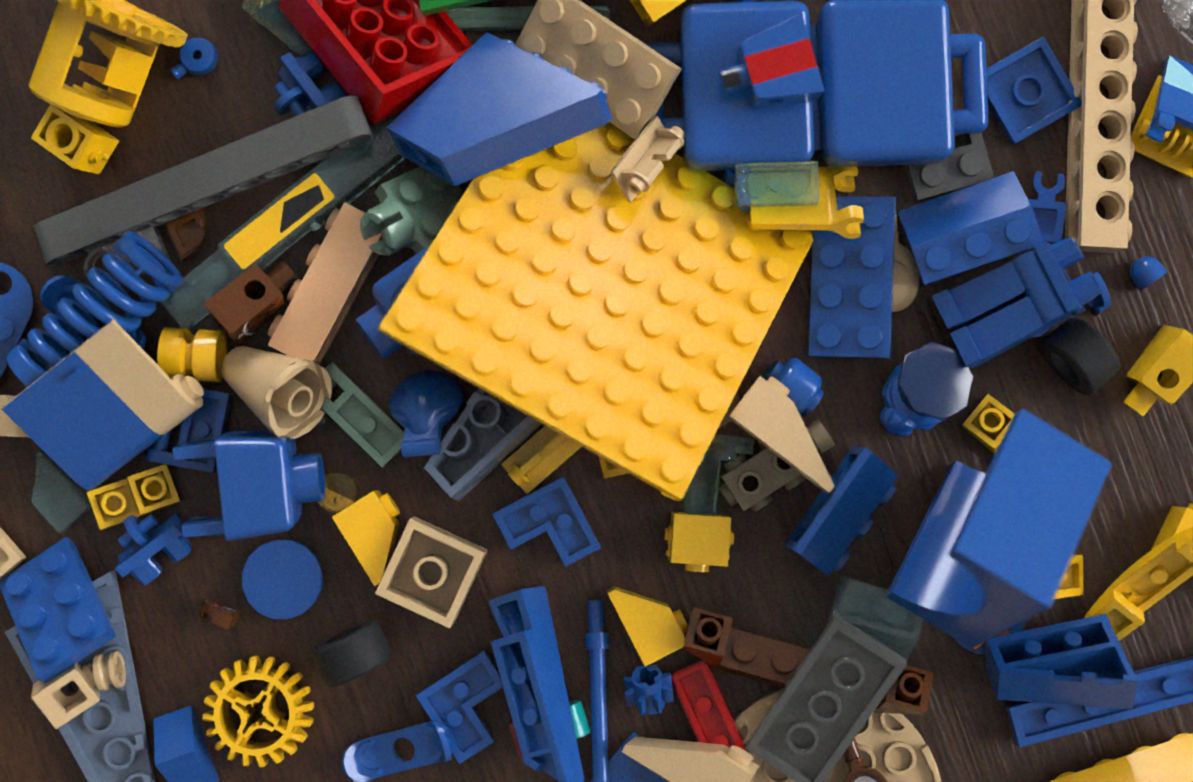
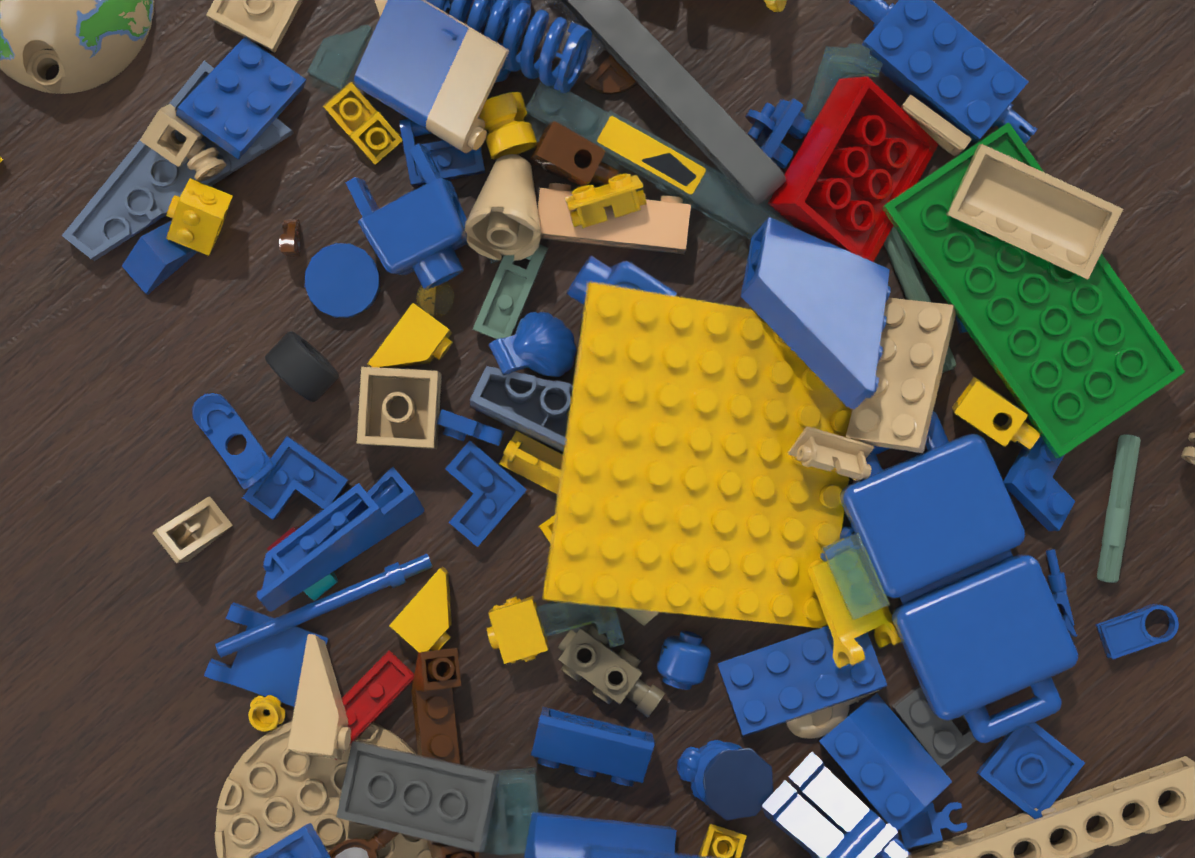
camera: 70 degrees right, 0 degrees up
(138, 557) = (312, 149): blue hips -> none
(158, 699) = (198, 216): none -> yellow head
(188, 58) = (764, 16): blue piece -> none
(244, 704) = (222, 288): yellow gear -> none
(302, 298) = (591, 201): none -> yellow hinge
(409, 211) = (704, 267): sand green plate -> none
(474, 518) = (459, 427): none -> blue plate
(648, 689) = (370, 637): blue gear -> none
(776, 67) = (955, 535): torso -> none
(777, 425) = (644, 658): tan slope -> none

